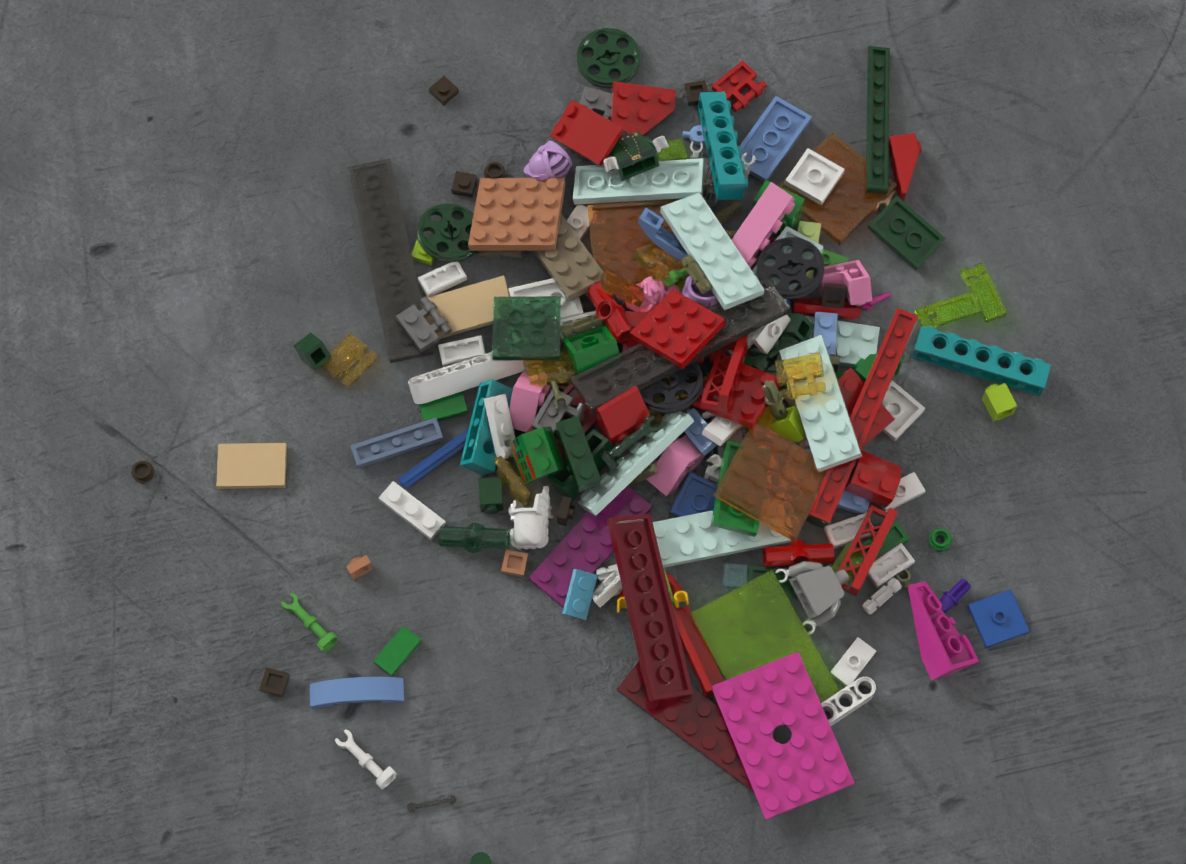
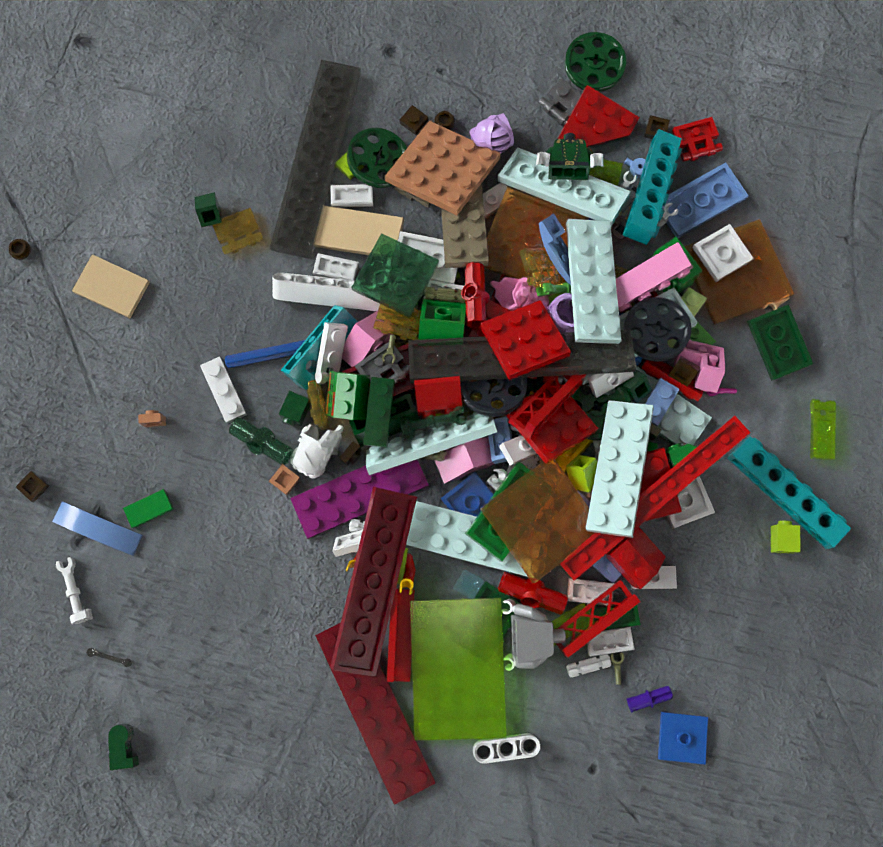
camera: 25 degrees right, 10 degrees up
(327, 640) = (94, 470): bright green piece -> none
(397, 442) = (239, 324): sand blue plate -> none
(418, 328) = (306, 229): flat silver plate -> none
(443, 90) = (438, 28): dark brown plate -> none
(444, 407) = (295, 312): green tile -> none
(579, 594) = (325, 535): medium azure plate -> none
(586, 133) = (538, 120): red slope -> none
(622, 288) = (496, 278): clear orange plate -> none
(696, 274) = (567, 297): olive axle -> none
(728, 211) = (628, 250): olive axle -> none
(773, 398) = (579, 445): olive axle -> none
(788, 772) = (424, 792): dark pink plate -> none
(800, 369) = (616, 429): clear yellow plate -> none
(852, 662) = (532, 713): white plate -> none
(877, 120) = (806, 226): dark green tile -> none
(903, 158) = (813, 269): red slope -> none
(939, 642) = (618, 739): dark pink wedge -> none
(942, 533) = (673, 636): green plate -> none
(949, 310) = (782, 431): clear neon green plate -> none

